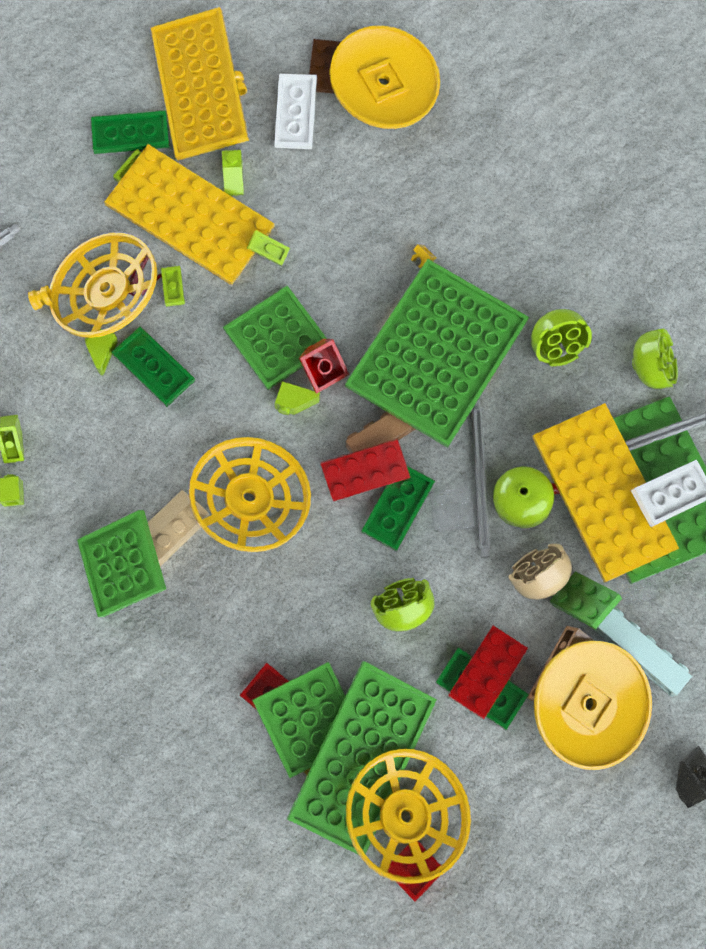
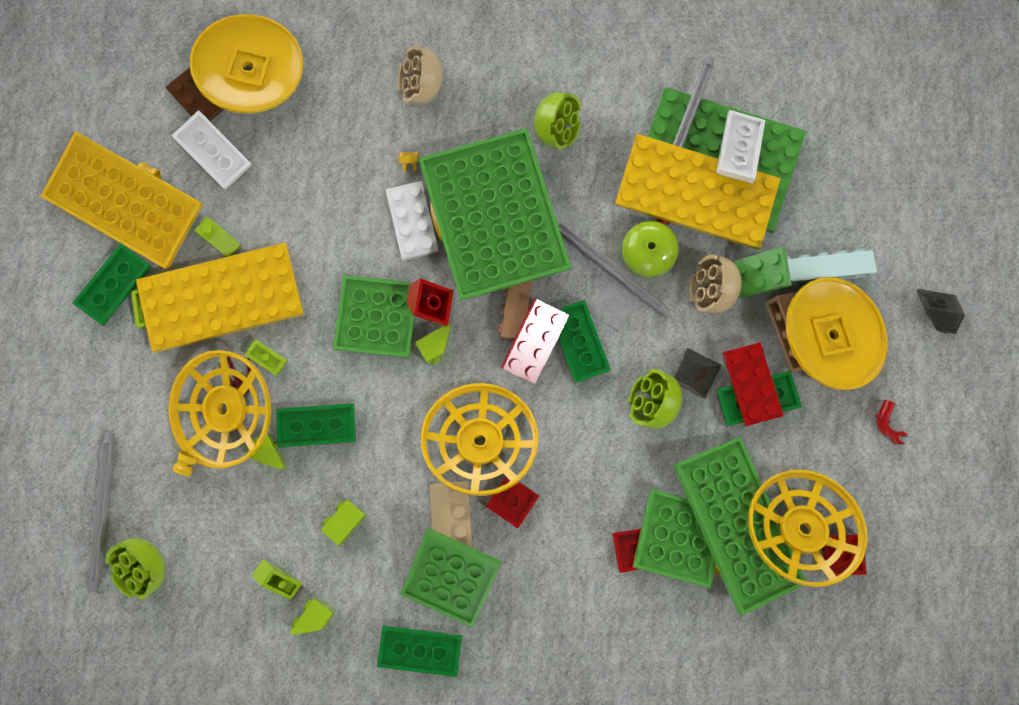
camera: 45 degrees left, 5 degrees up
(46, 592) = (419, 651): none -> green plate
(96, 449) = (343, 522): none -> lime brick
(223, 564) = (513, 503): none -> red plate
(268, 248) = (301, 263): lime plate -> none
(376, 300) = (412, 221): none -> white plate
(457, 620) = (696, 373): none -> clear smoke slope
(501, 211) = (426, 73): none -> tan cylinder
(557, 809) = (883, 421): none -> red piece
(651, 357) = (632, 73): lime cylinder -> none

